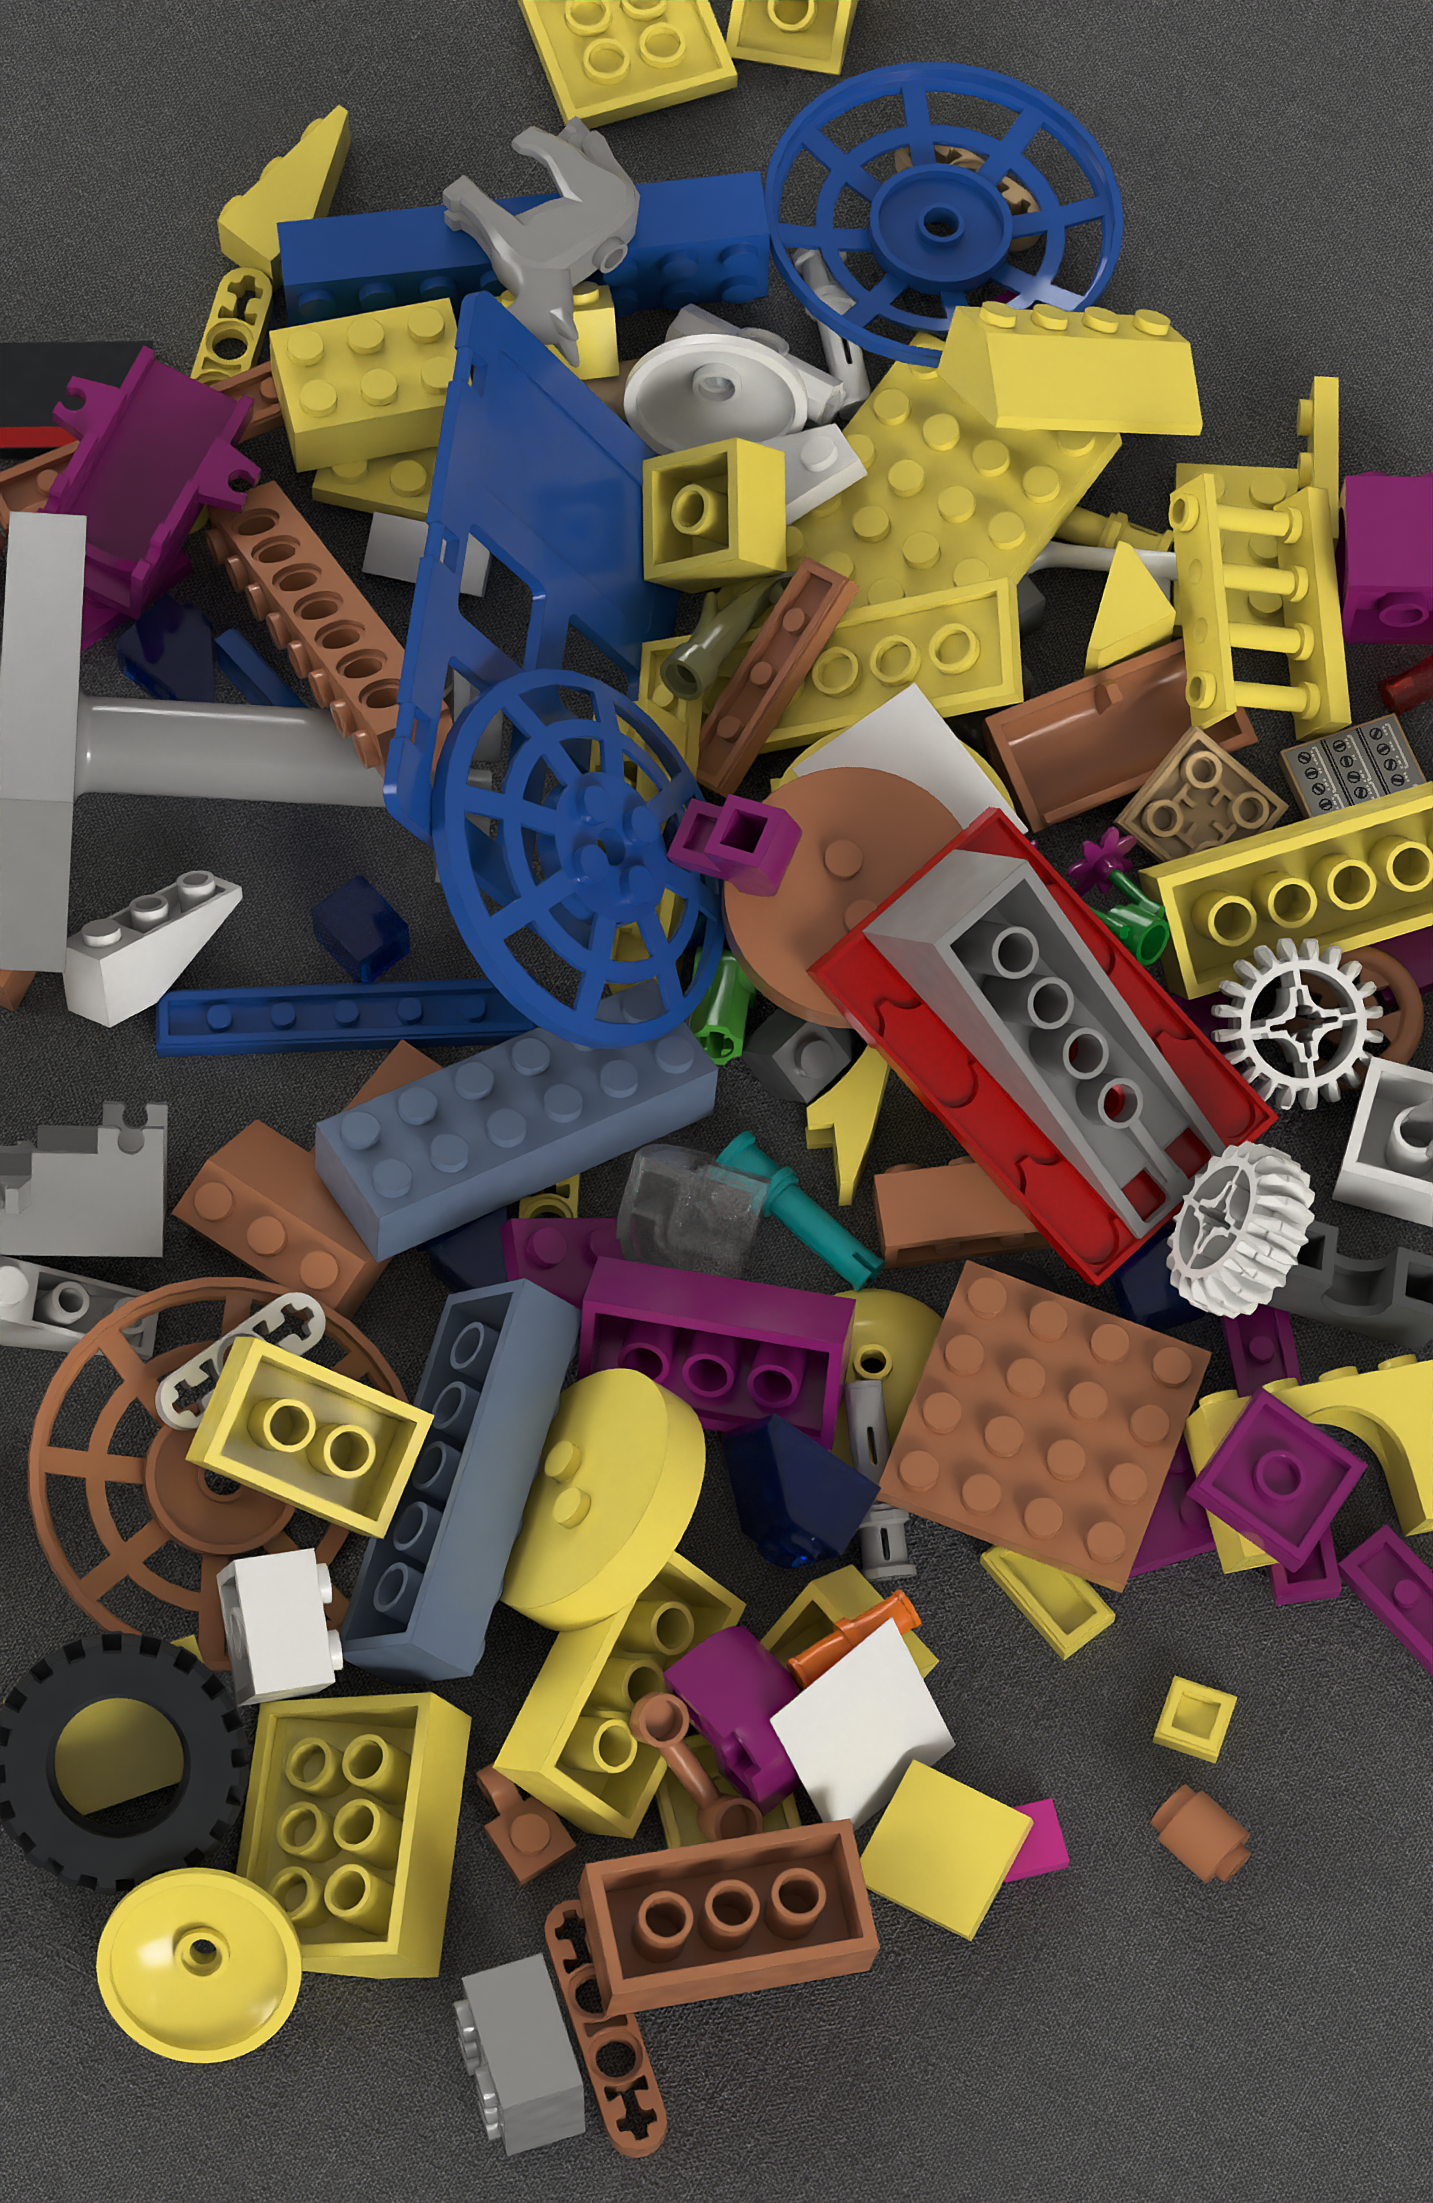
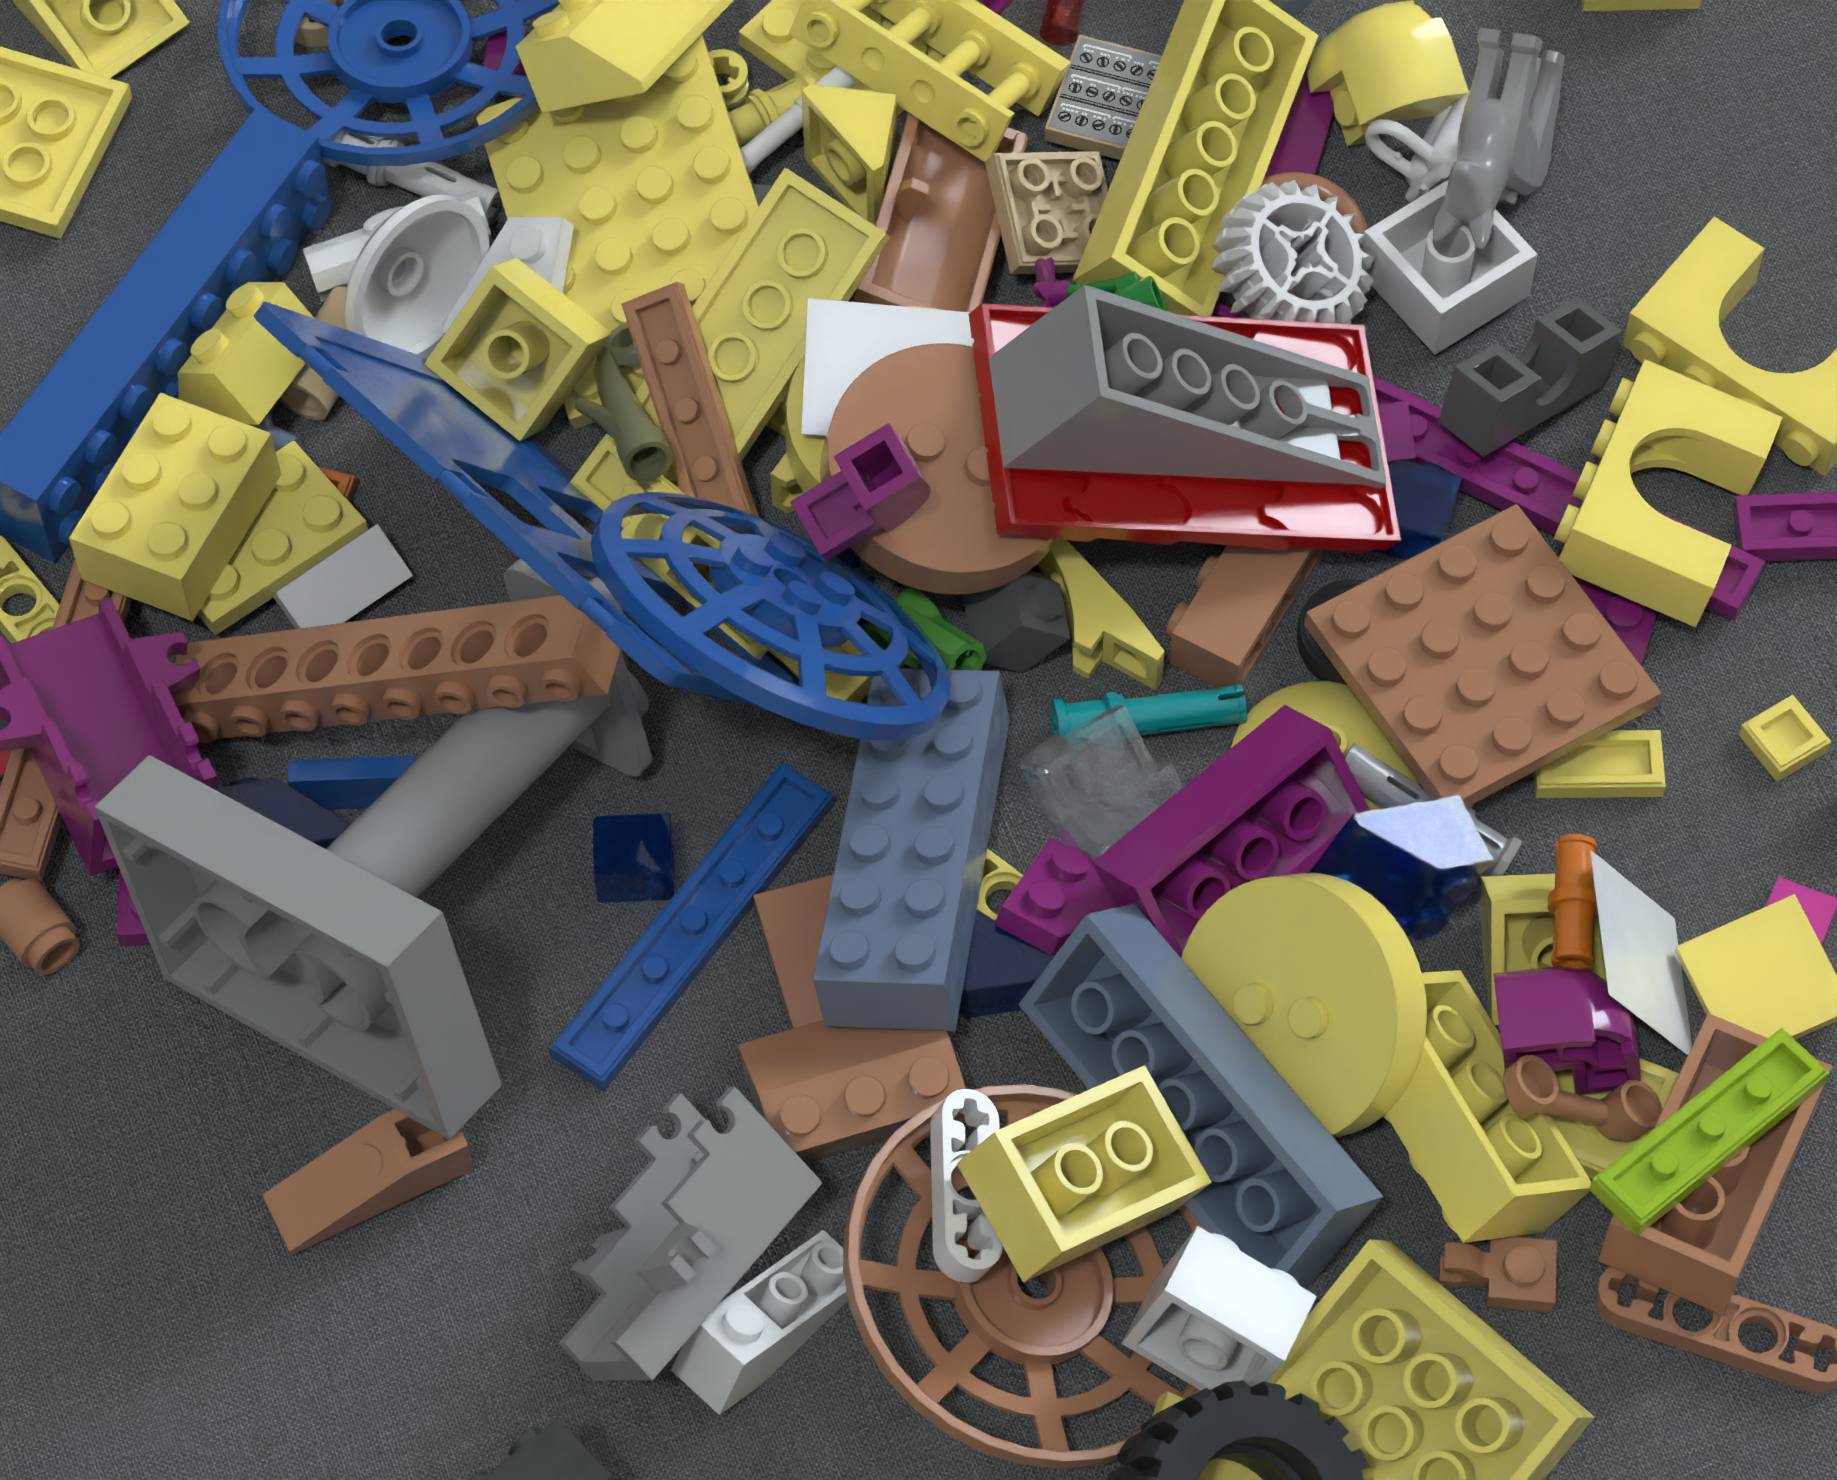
camera: 50 degrees left, 5 degrees down
(139, 952) = (516, 1020): white slope -> none
(520, 2056) = (1733, 1383): light grey brick -> none
(560, 241) = (196, 278): light grey animal -> none
(731, 1887) = (1709, 1131): none -> lime tile
(1126, 466) = (734, 65): none -> light yellow bush
(1240, 1229) = (1432, 368): white gear -> none
(1277, 1479) = (1670, 522): magenta tile -> none

